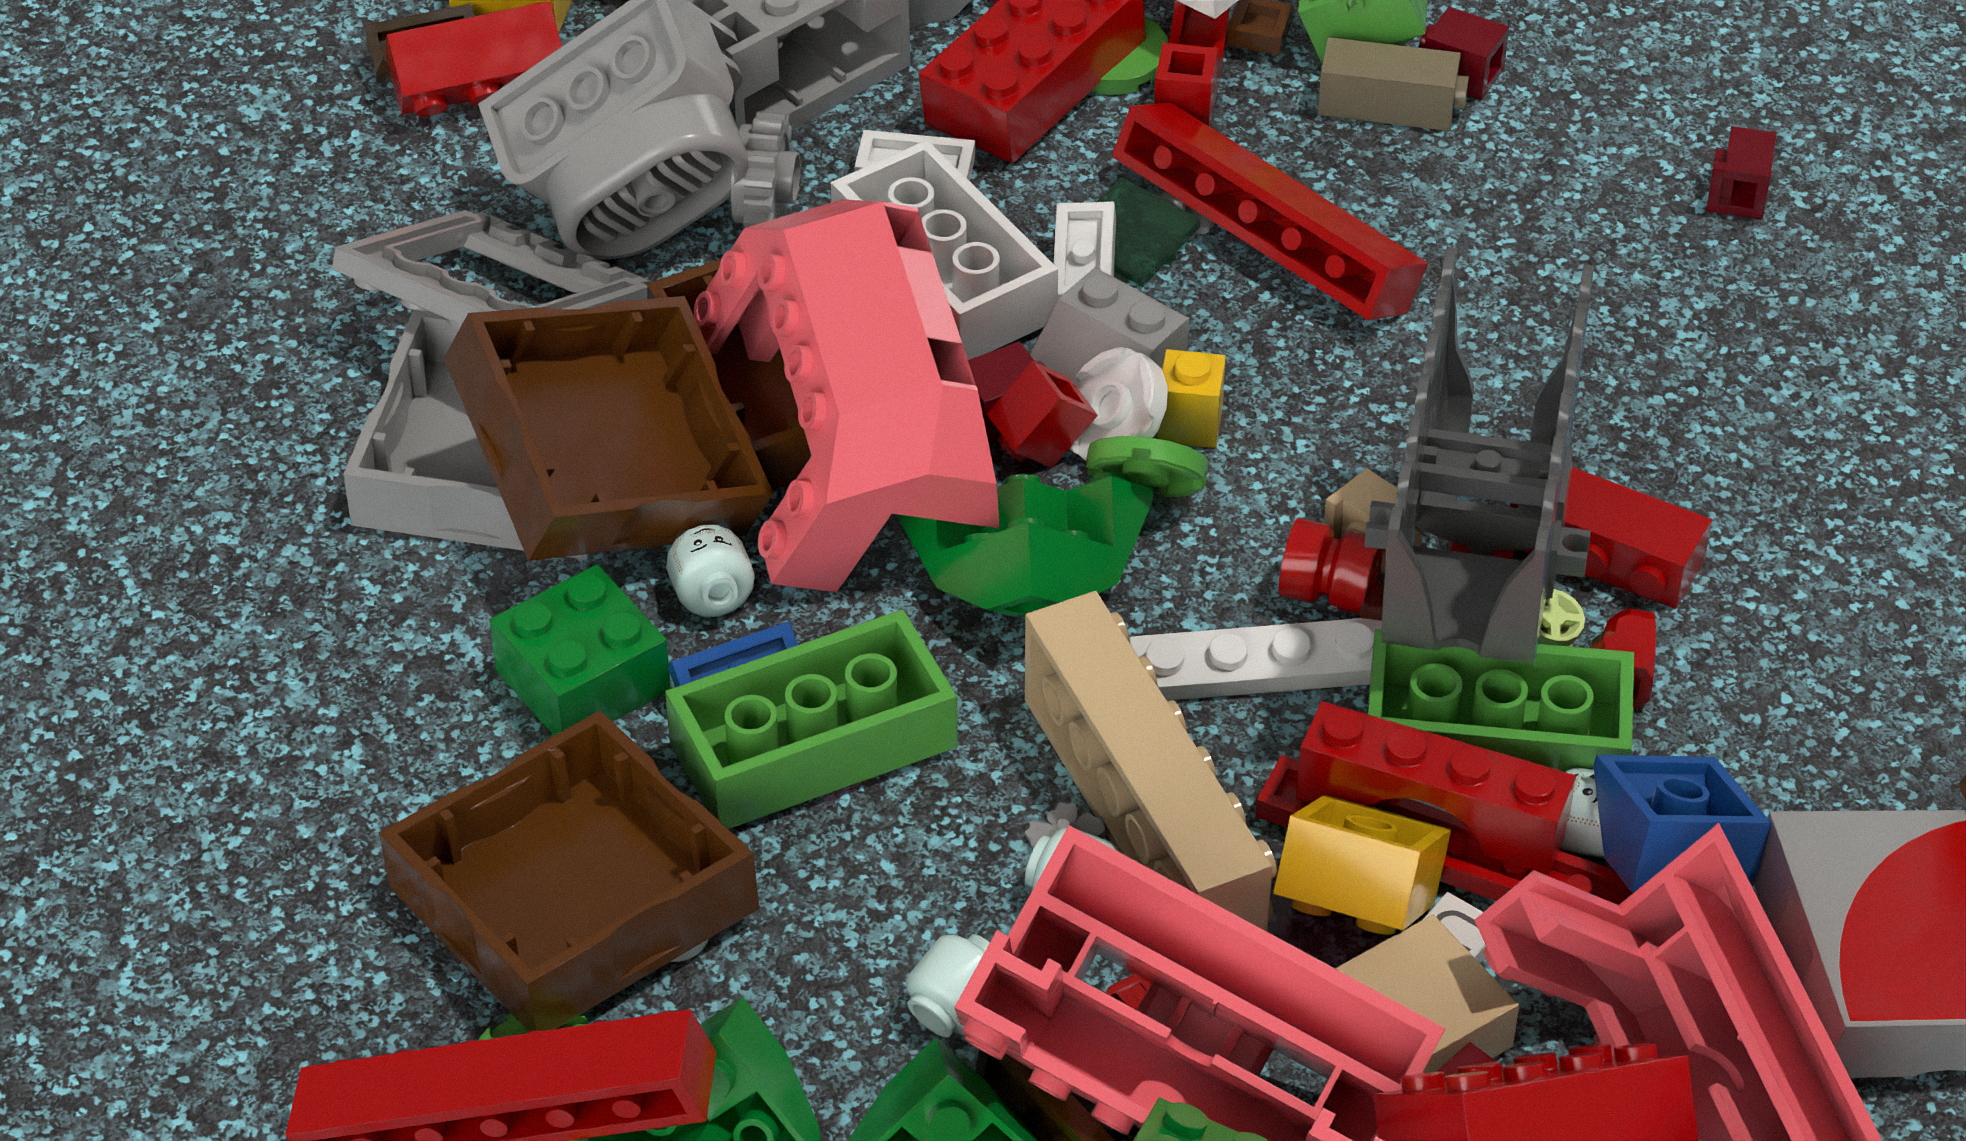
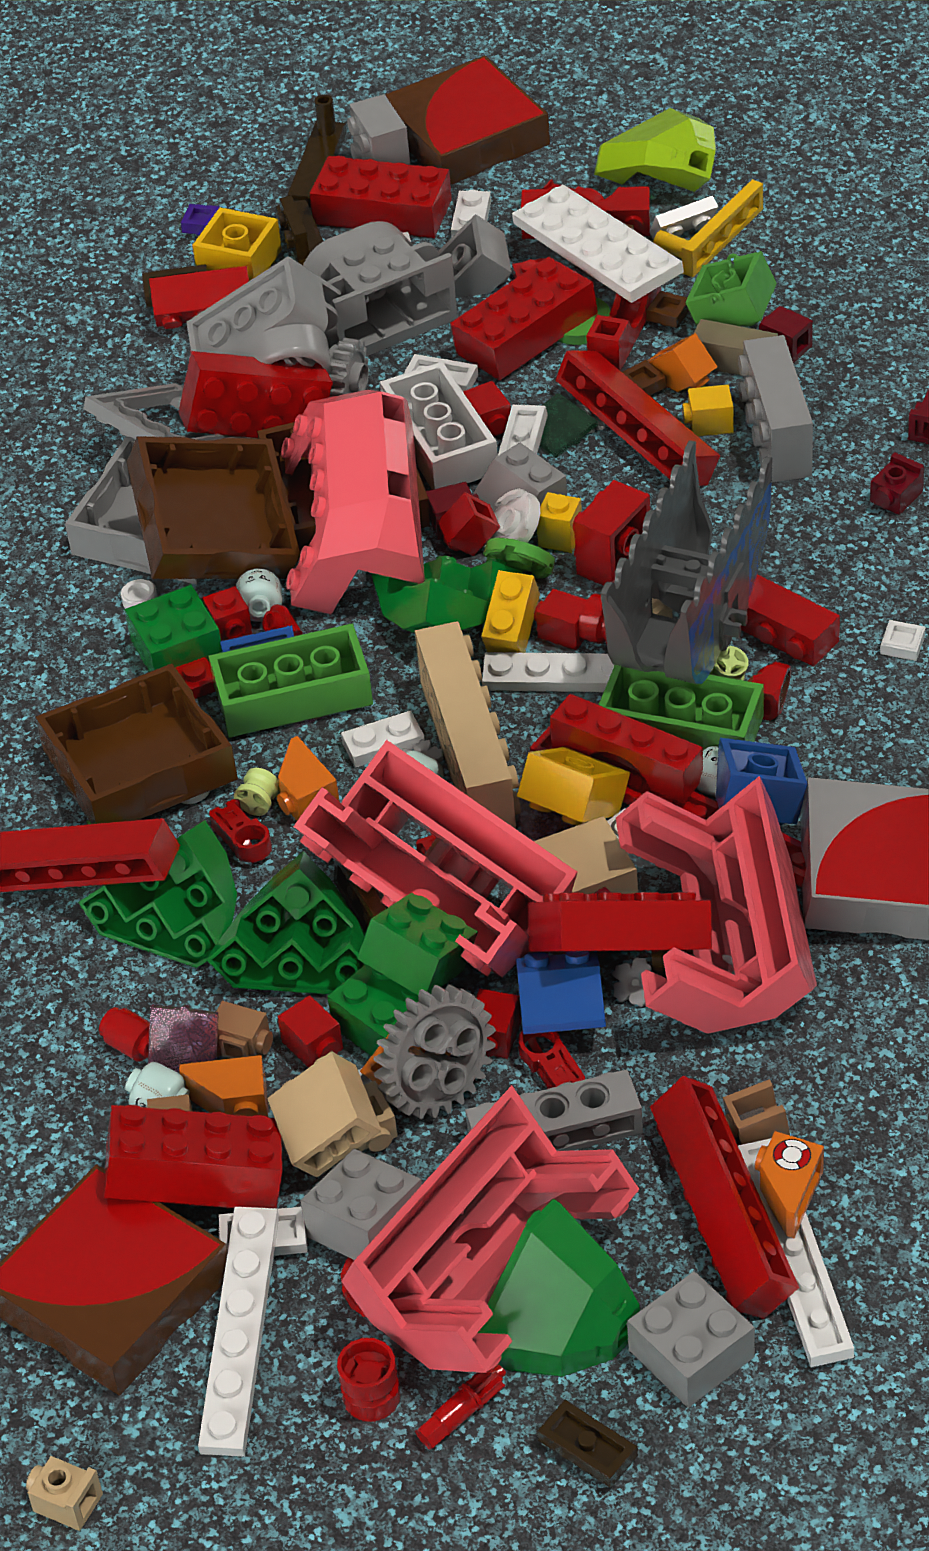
camera: 15 degrees right, 0 degrees up
(492, 588) = (137, 592): none -> white tile
(617, 224) = (244, 395): none -> red brick
(642, 723) = (198, 677): none -> red plate
(675, 608) = (229, 613): none -> red brick
(755, 611) = (280, 617): none -> red plate
(786, 1002) = (238, 829): none -> red piece
(802, 928) = (257, 791): none -> yellowish green wheel
(886, 906) = (301, 779): none -> orange slope
(990, 808) = (365, 741): none -> white plate
(1022, 205) = (490, 406): none -> red brick
(1162, 565) = (510, 613): none -> yellow brick
(1242, 565) = (559, 618): none -> red brick
(1261, 138) = (646, 377): none -> reddish brown plate
(1292, 411) = (606, 530): none -> red brick
(1310, 115) = (684, 363): none -> orange slope
(1381, 186) = (709, 410): none -> yellow brick
(1499, 177) = (776, 407): none -> light grey brick
(1722, 286) = (897, 484): none -> dark red brick
(1811, 550) = (902, 640): none -> white tile

